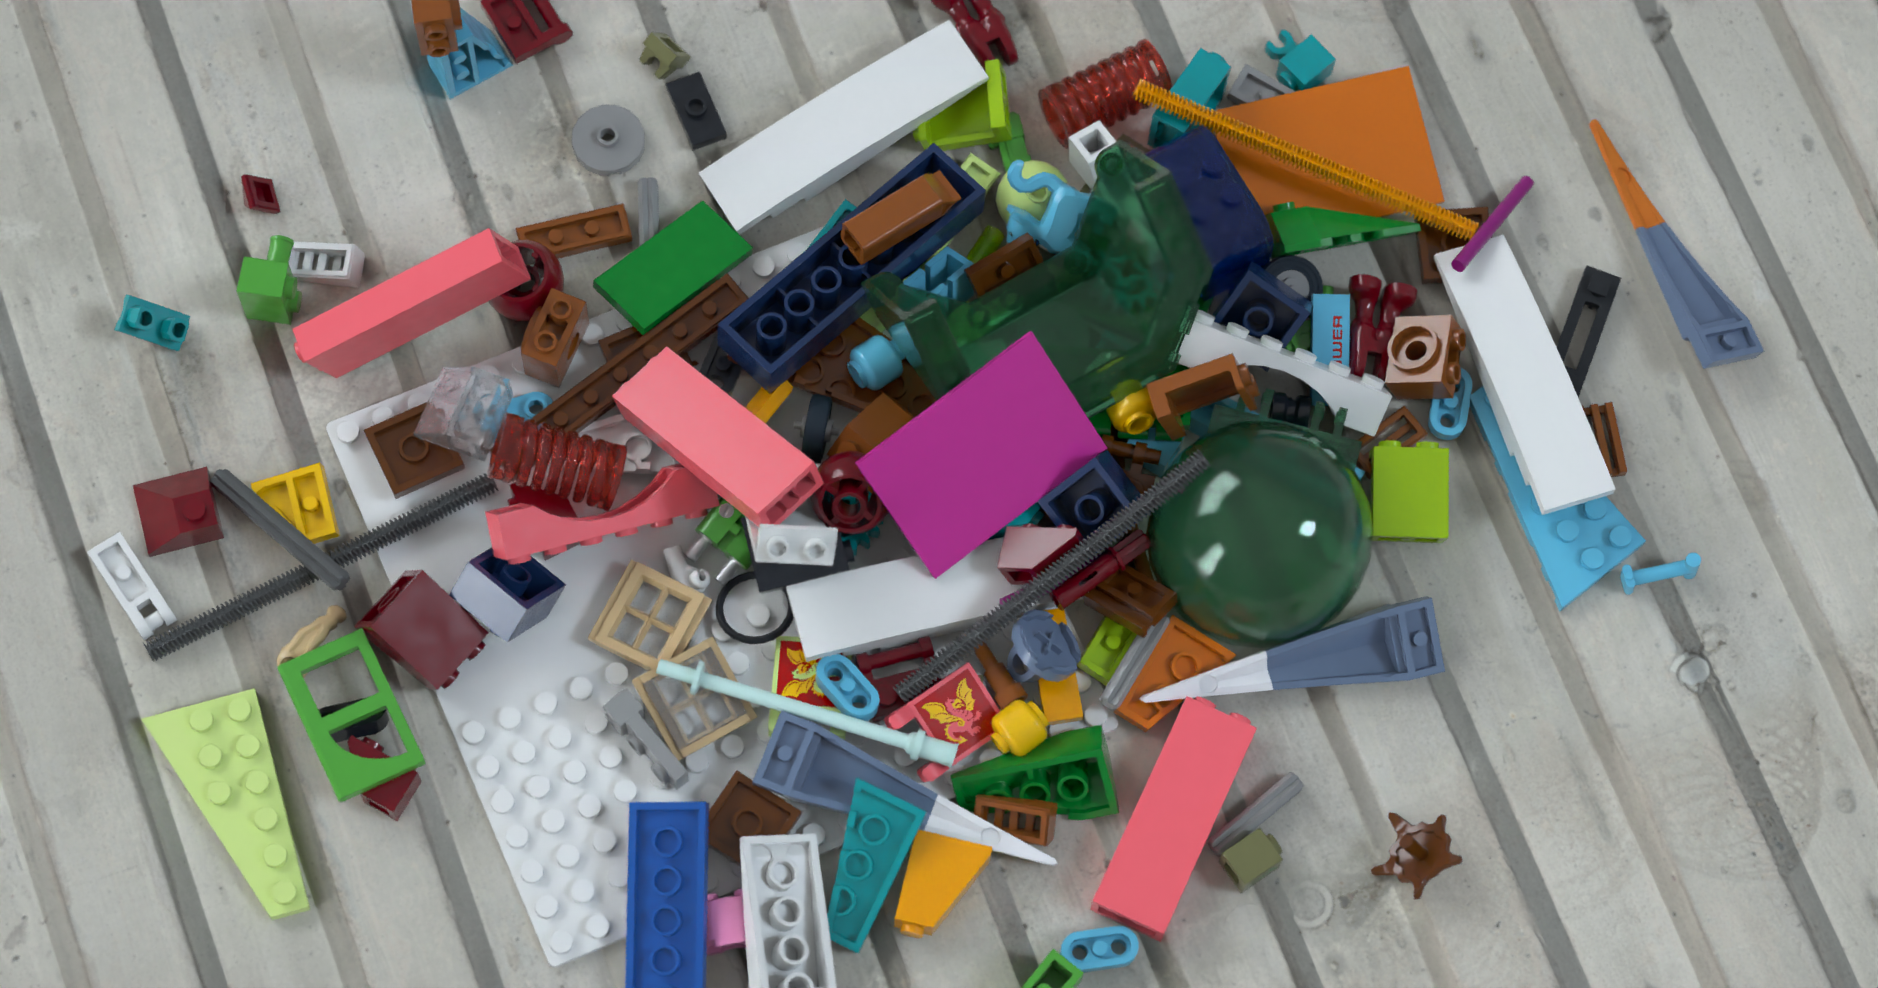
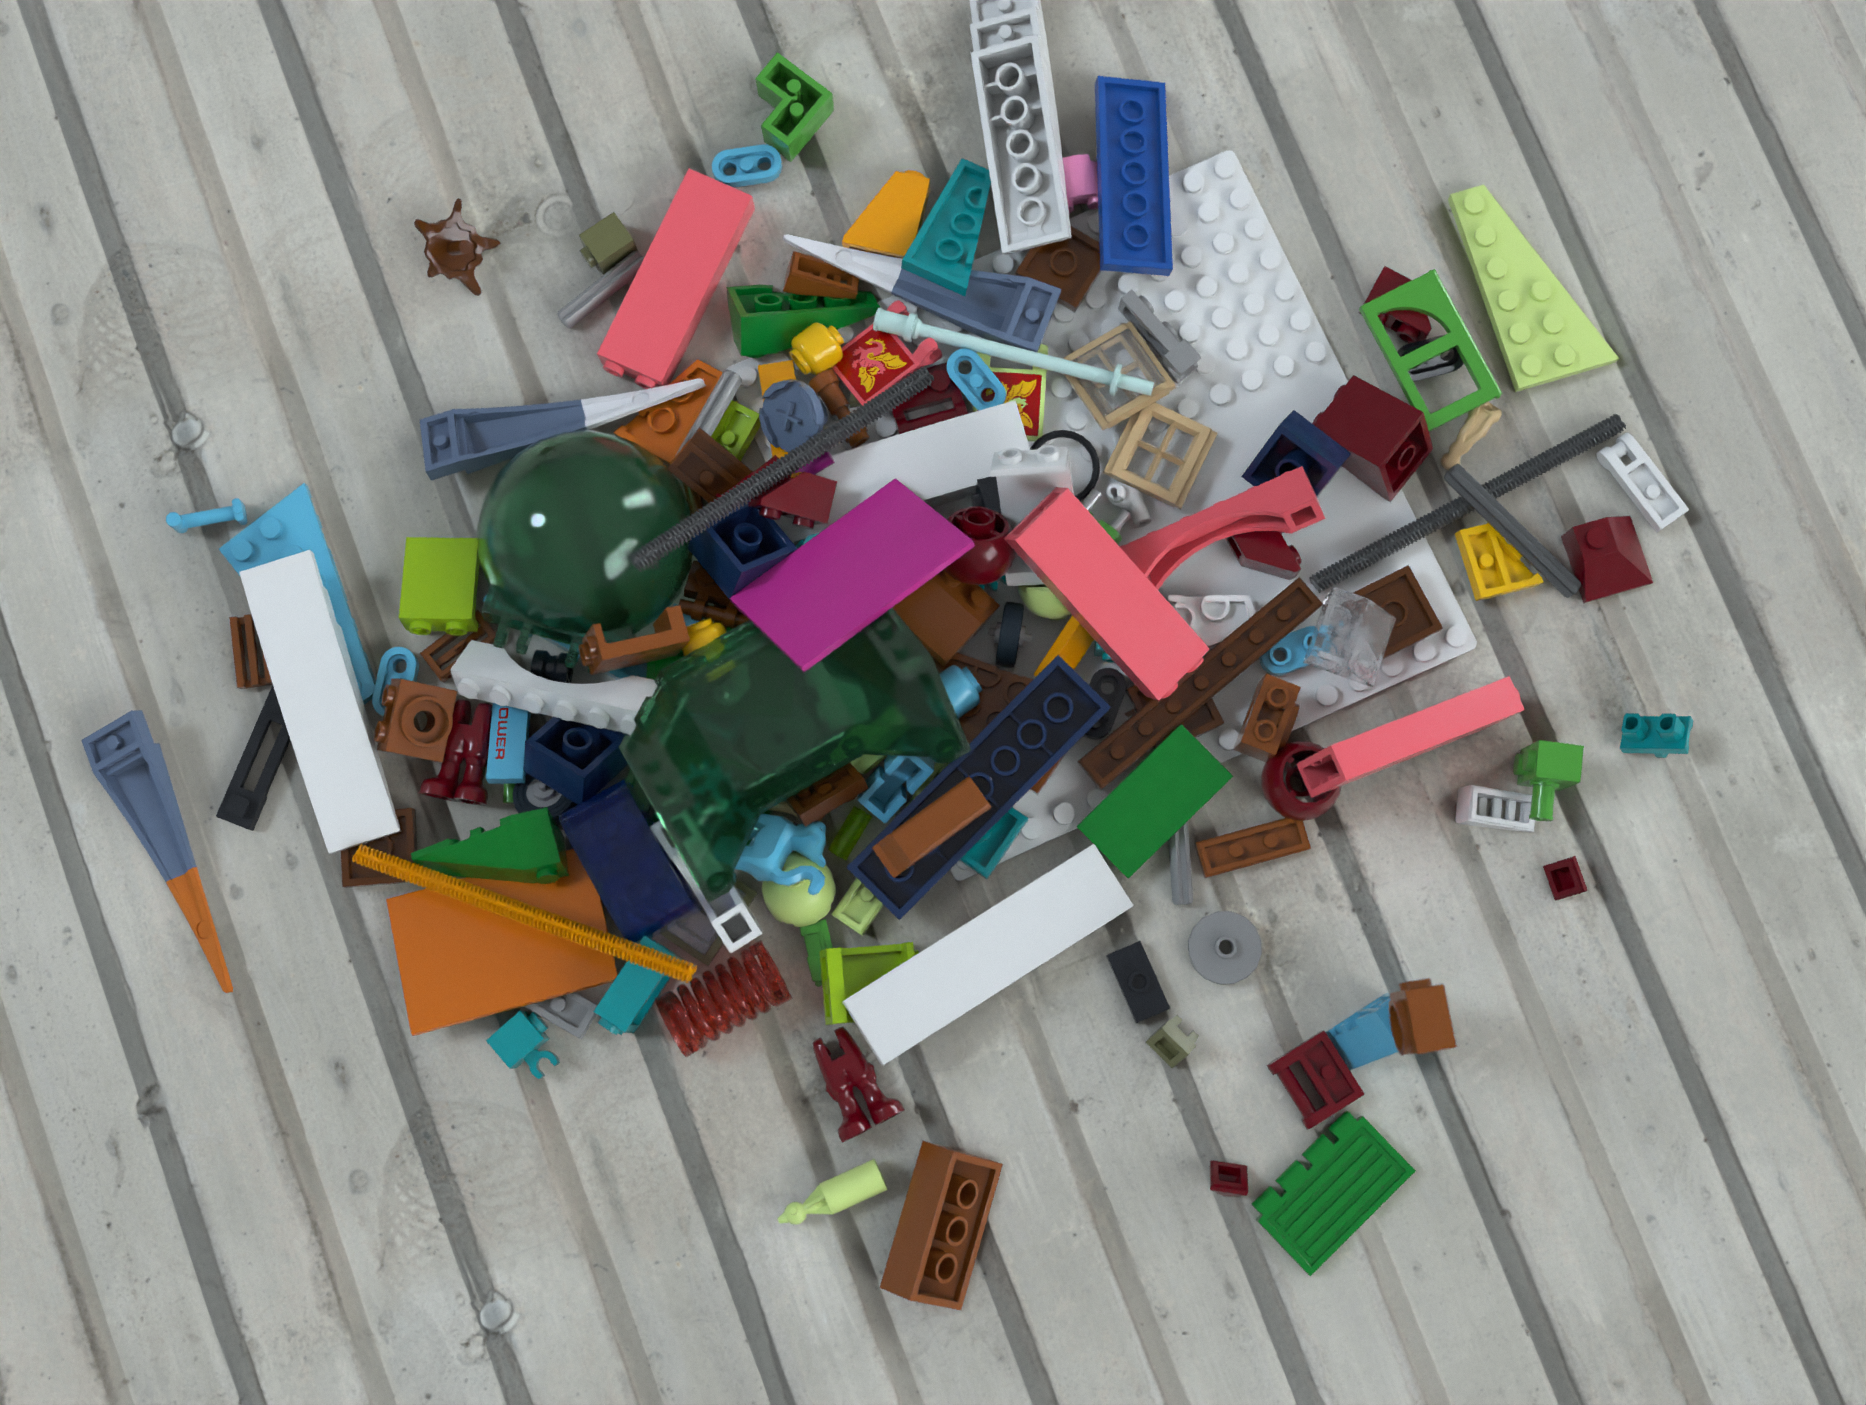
camera: 175 degrees left, 10 degrees up
(562, 446) = (1216, 560): clear red piece -> none
(1492, 223) = (338, 864): magenta bar -> none

